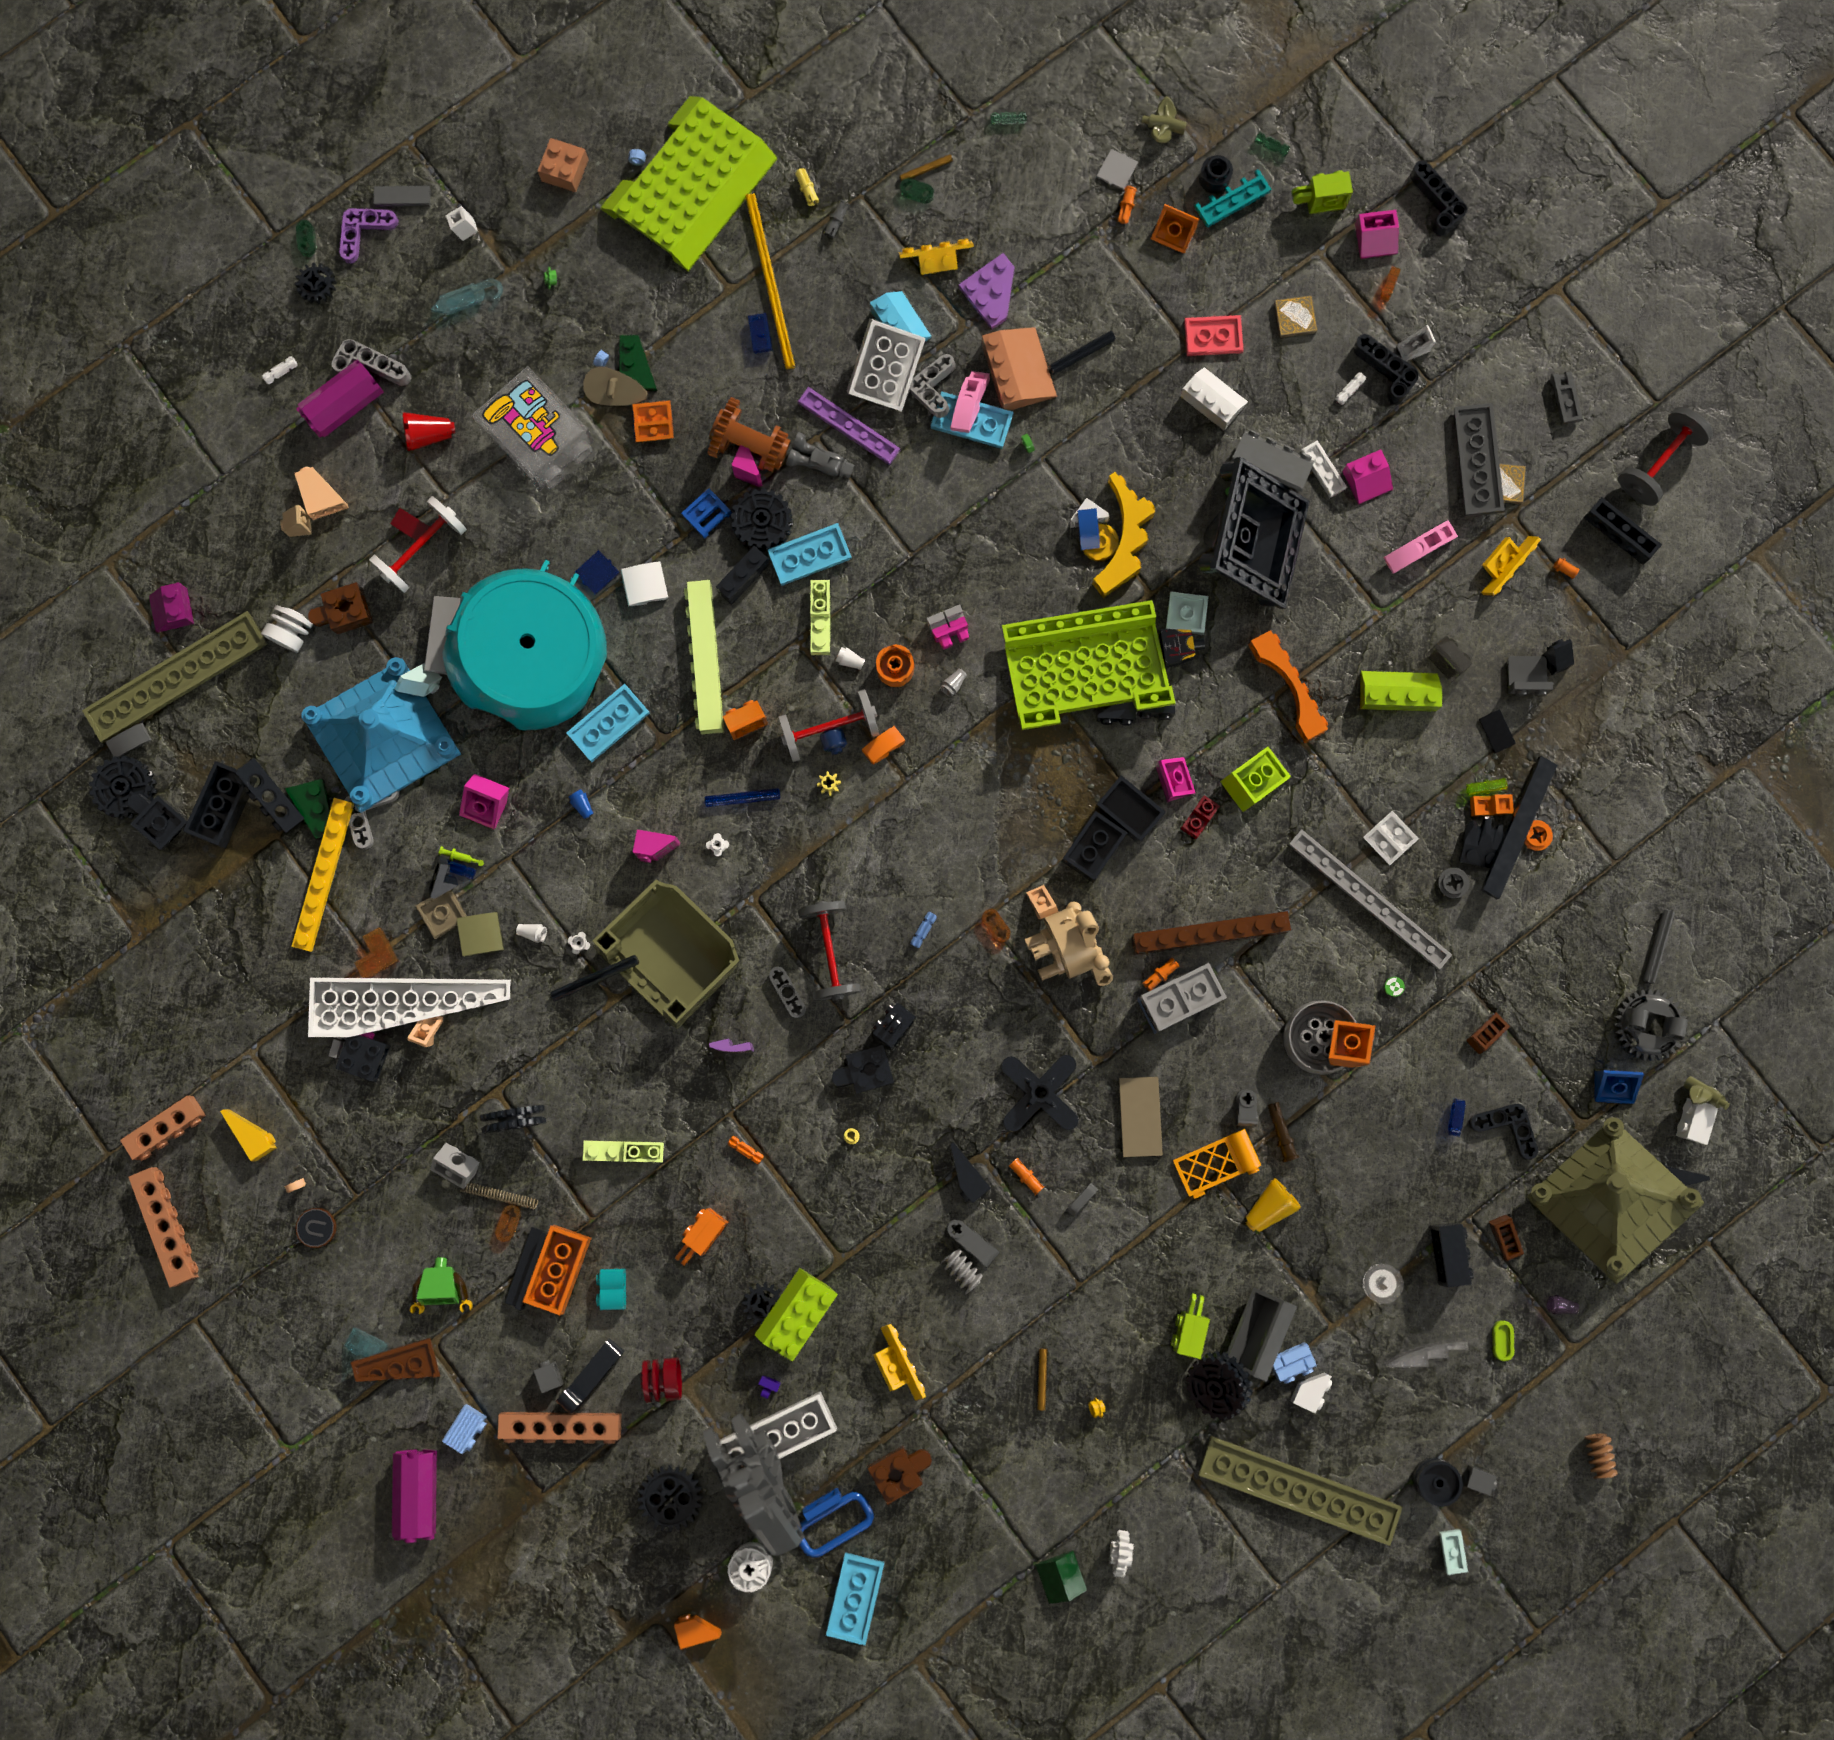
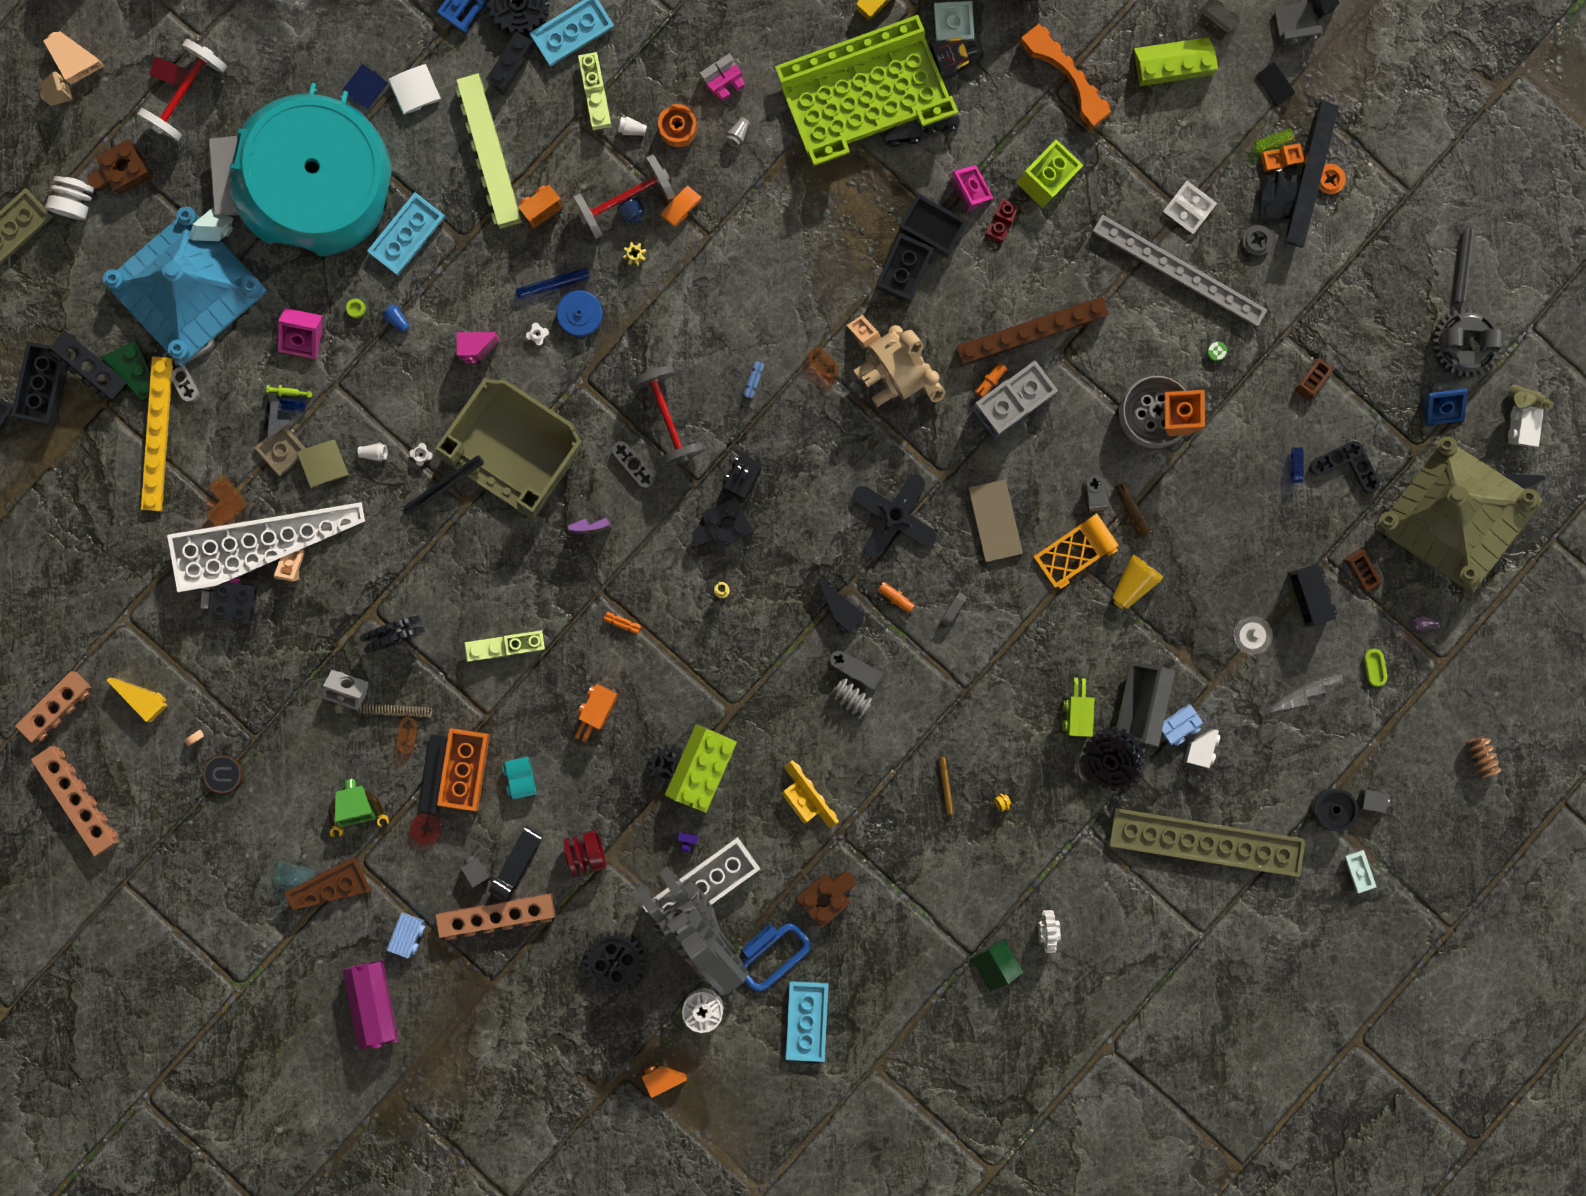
camera: 20 degrees left, 5 degrees up
(498, 1326) = (430, 836): none -> clear red gear
(543, 786) = (355, 308): none -> lime tile
(763, 832) = (579, 313): none -> blue wheel

